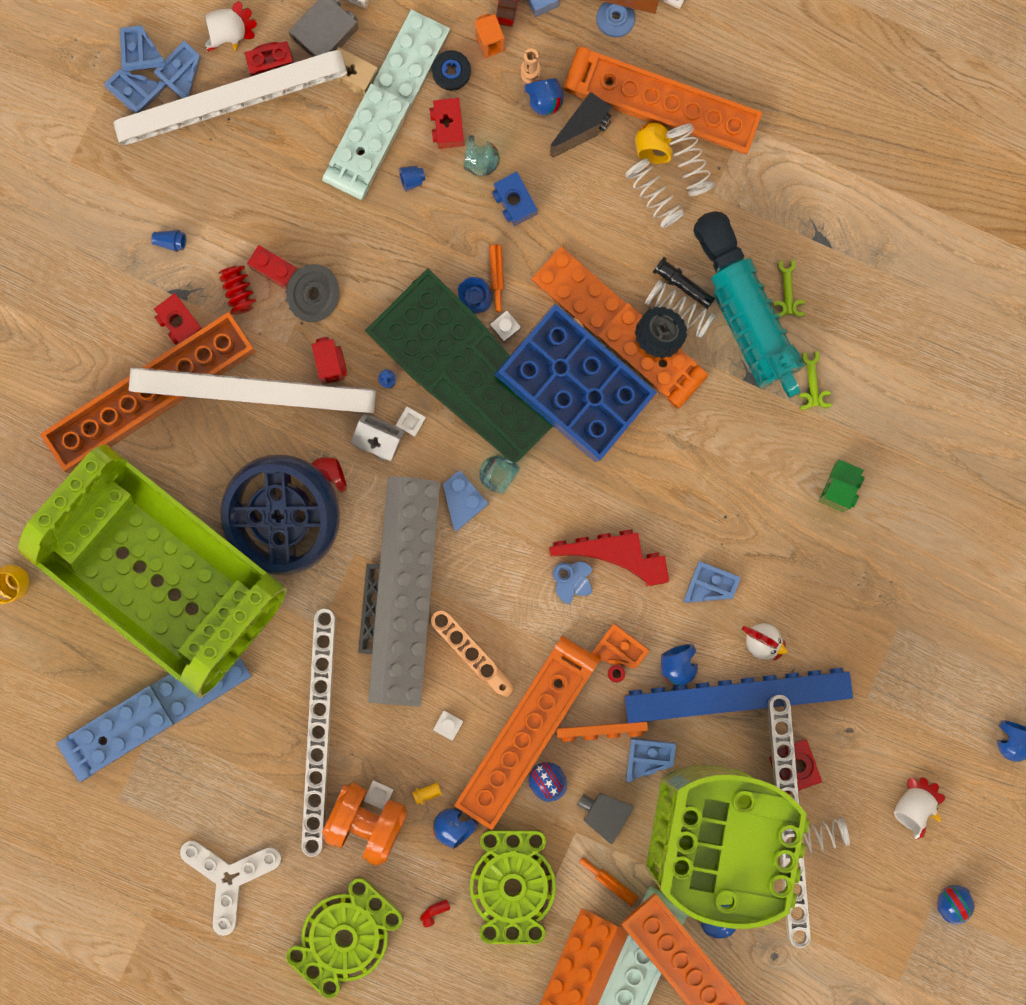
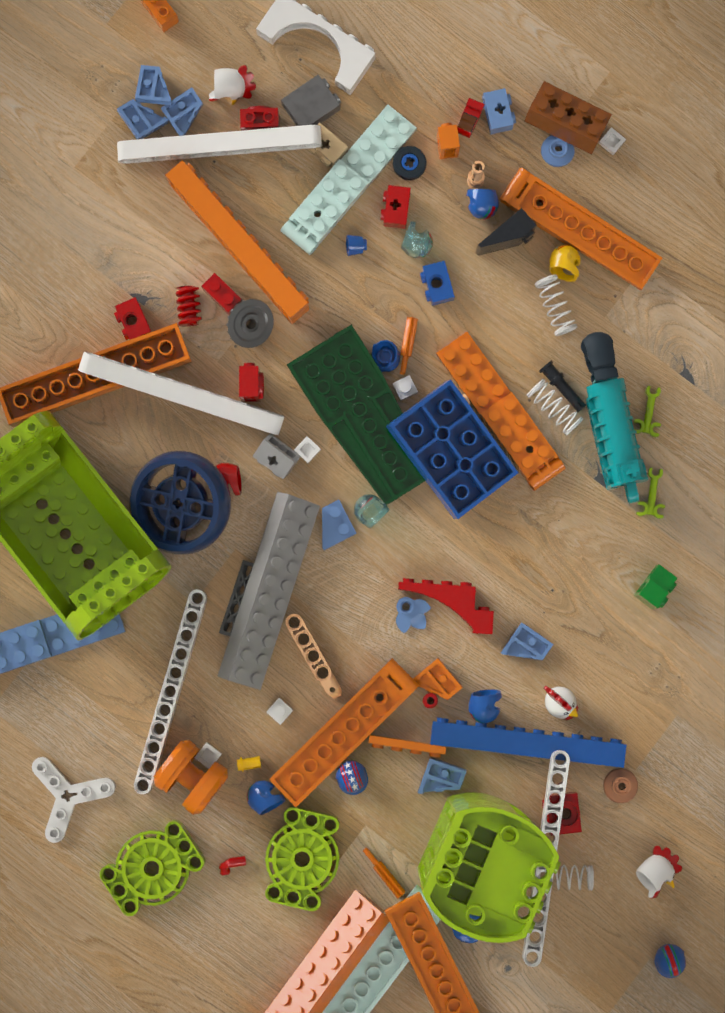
camera: 15 degrees right, 0 degrees up
(172, 240) = (141, 251): blue cone -> none
(277, 204) = (237, 242): none -> orange brick
(387, 378) = (295, 409): blue axle -> none
(605, 814) = (393, 816): dark grey torso -> none
(649, 332) = (524, 421): black wheel -> none
(680, 131) = (595, 256): white piece -> none
(843, 722) = (611, 785): none -> nougat piece

